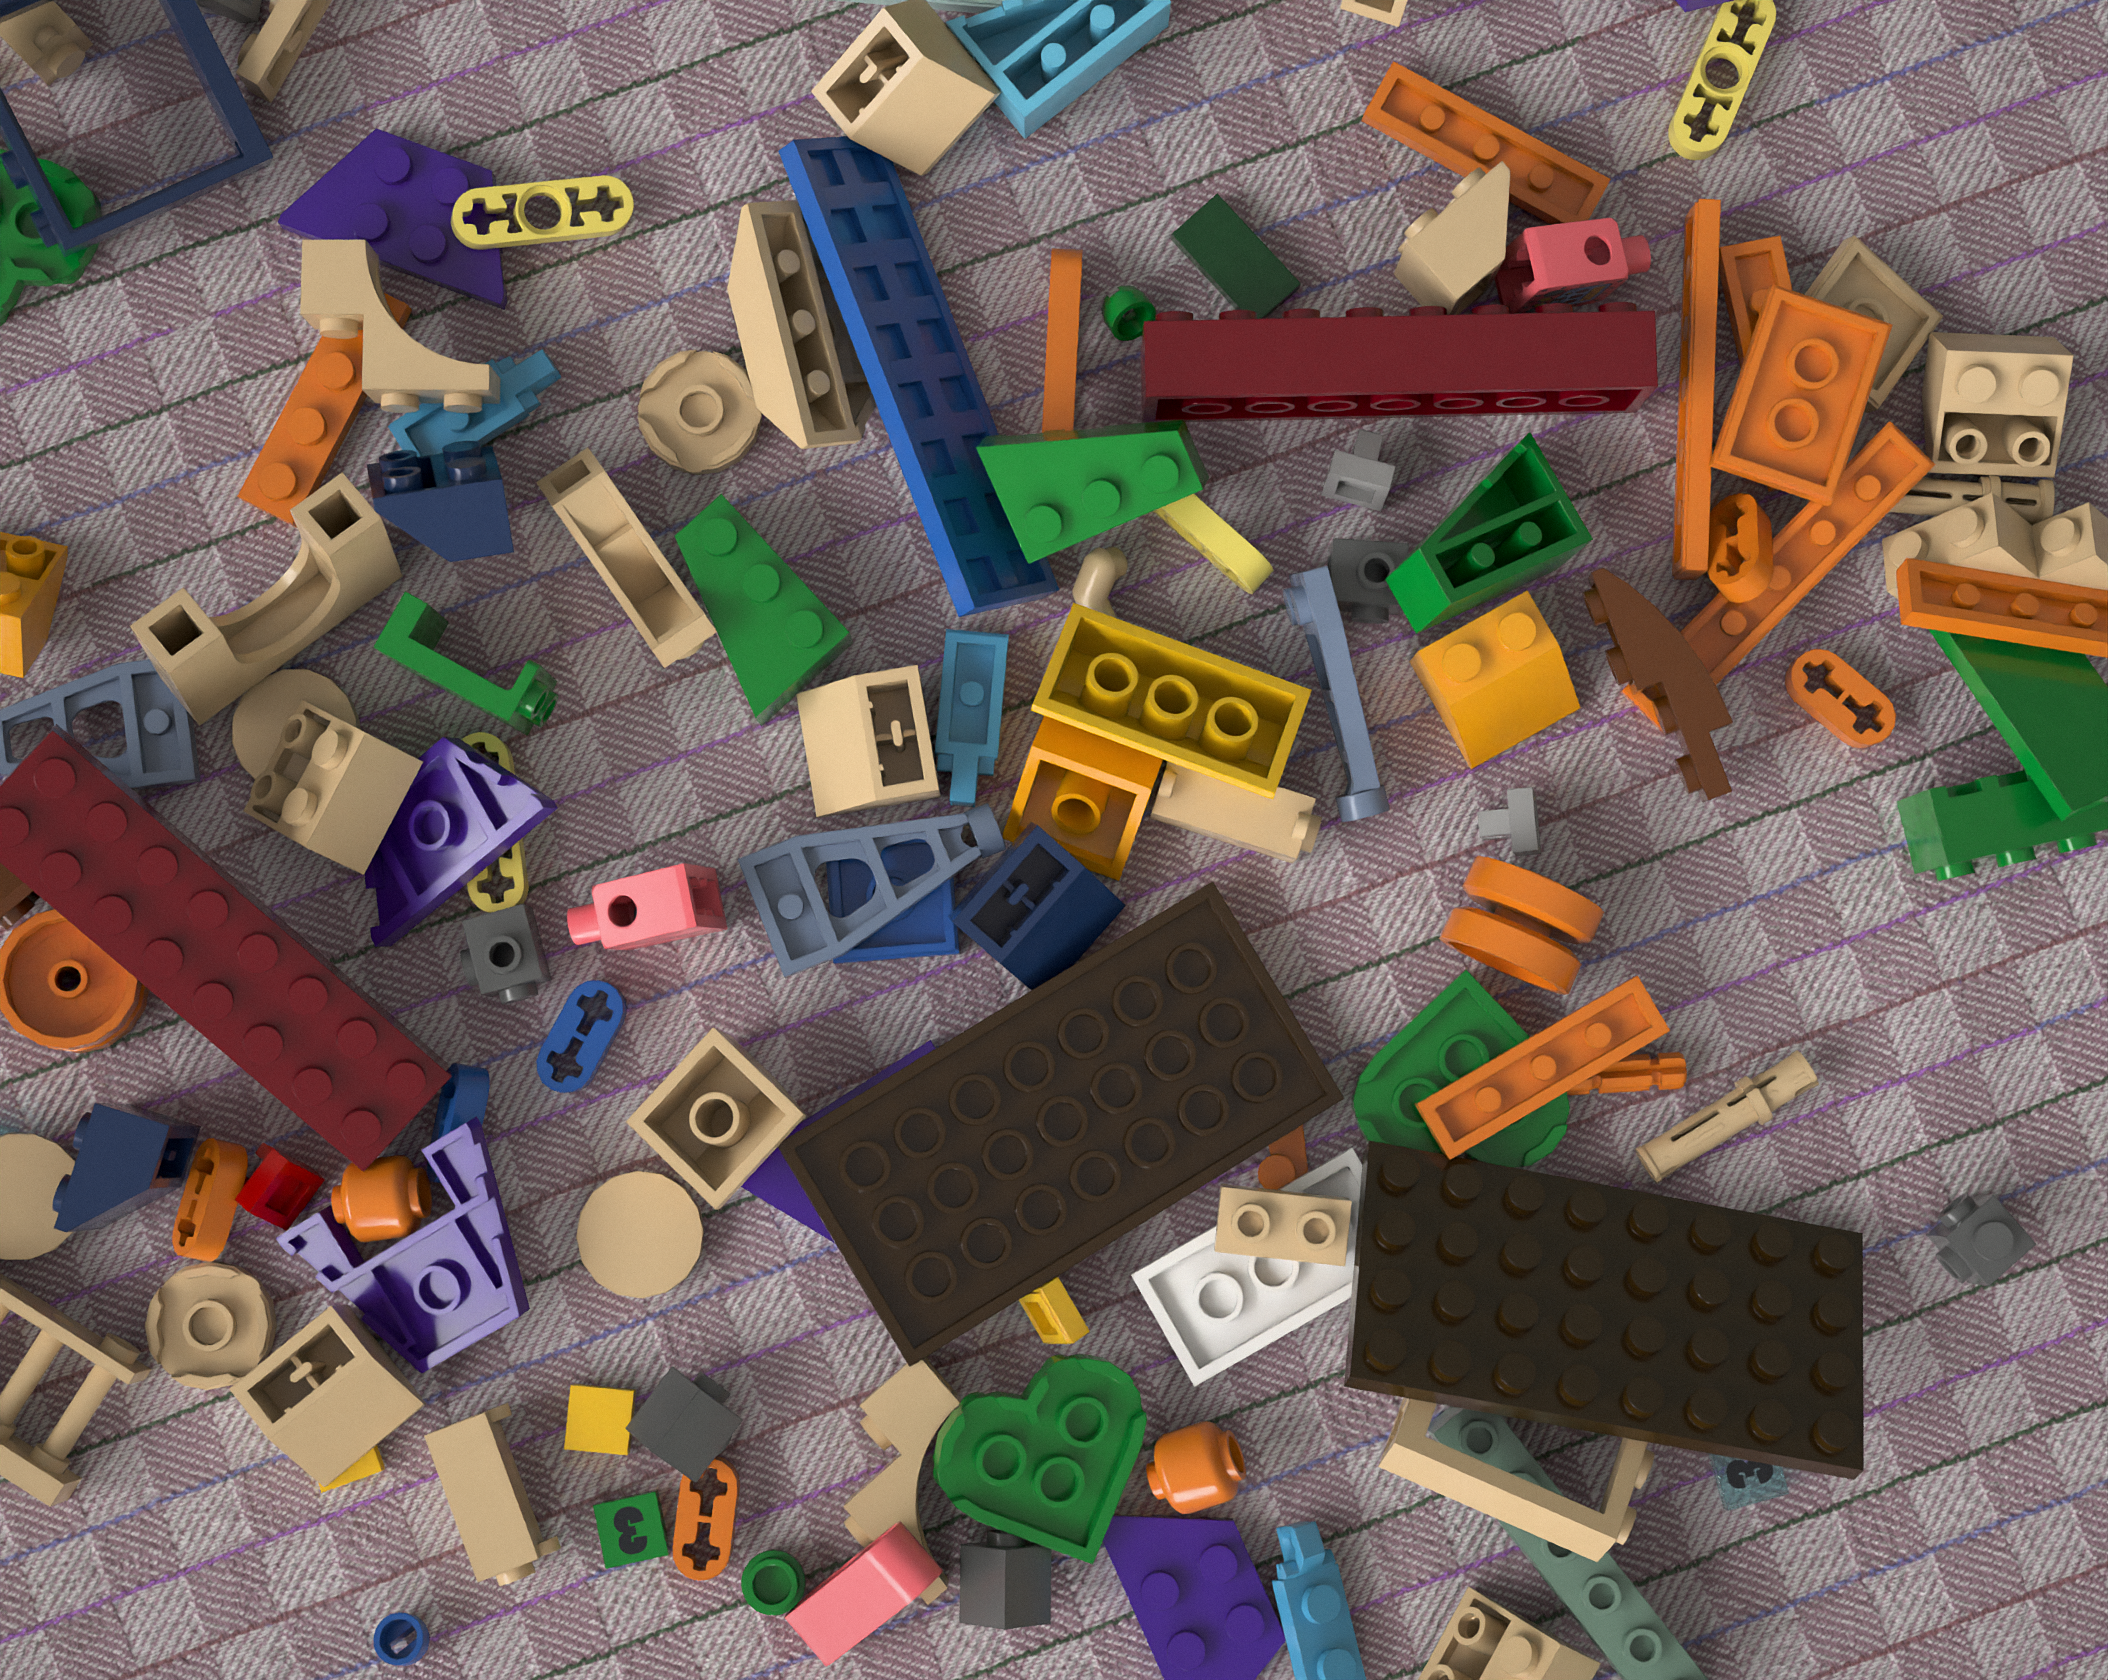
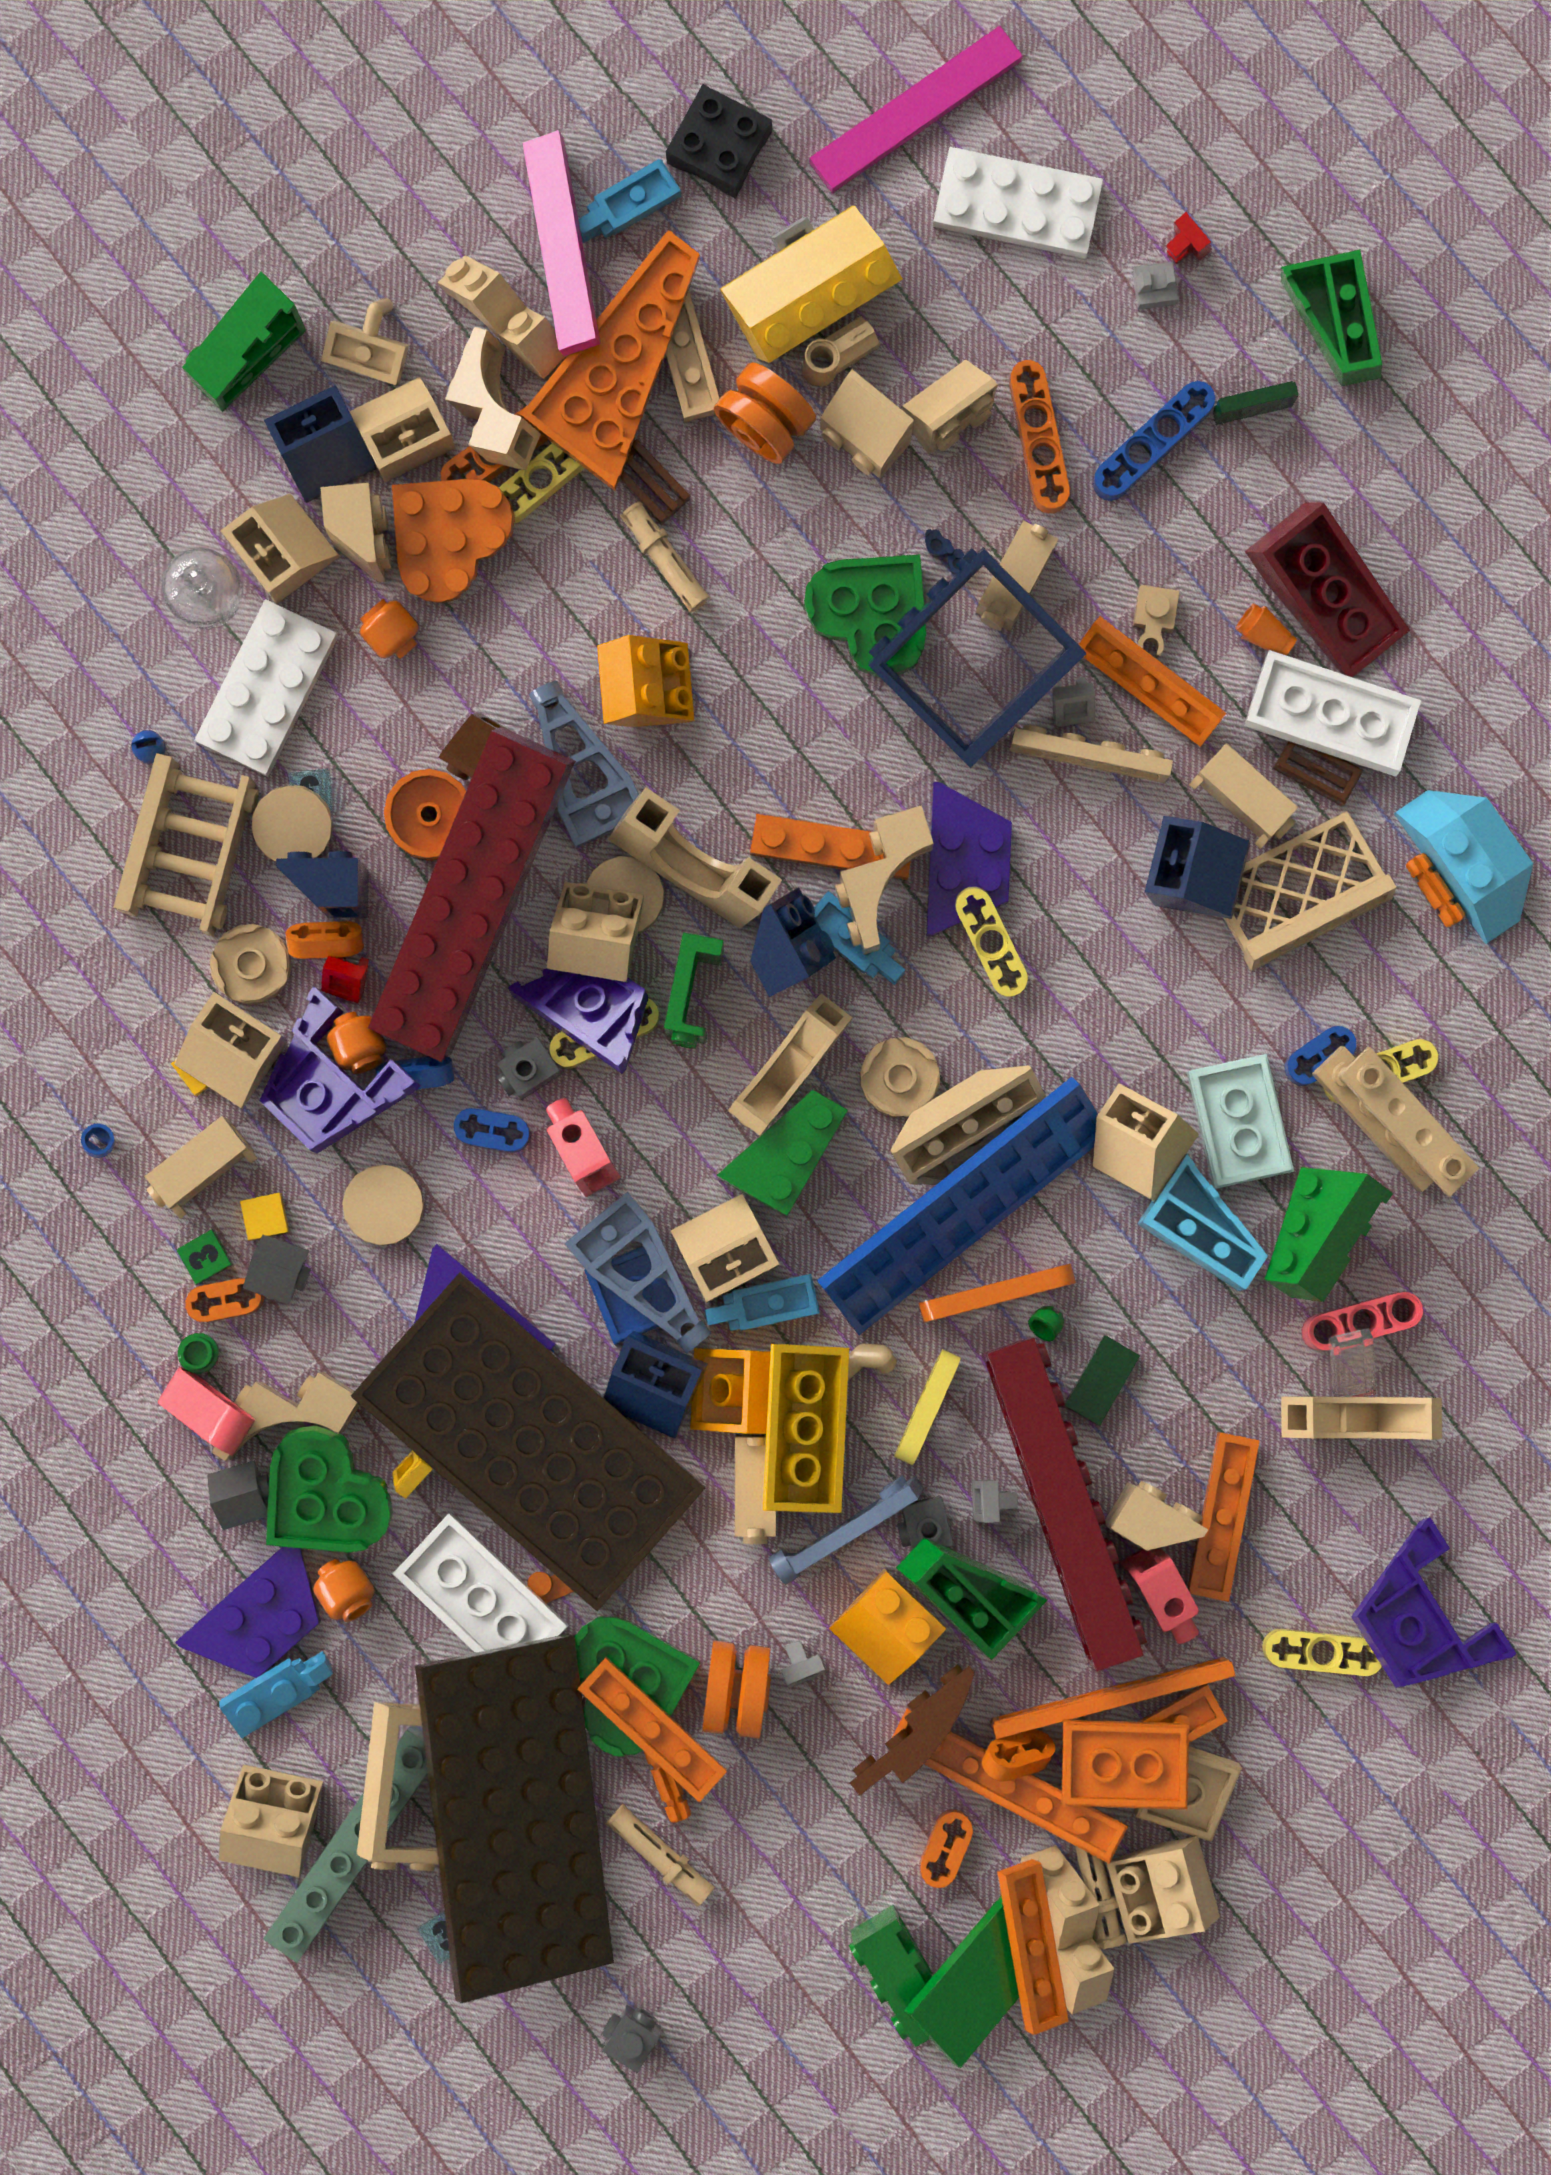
camera: 75 degrees right, 0 degrees up
(717, 1117) = (465, 1231): tan slope -> none
(1087, 481) = (925, 1334): green wedge -> none
(1282, 1225) = (505, 1597): tan brick -> none

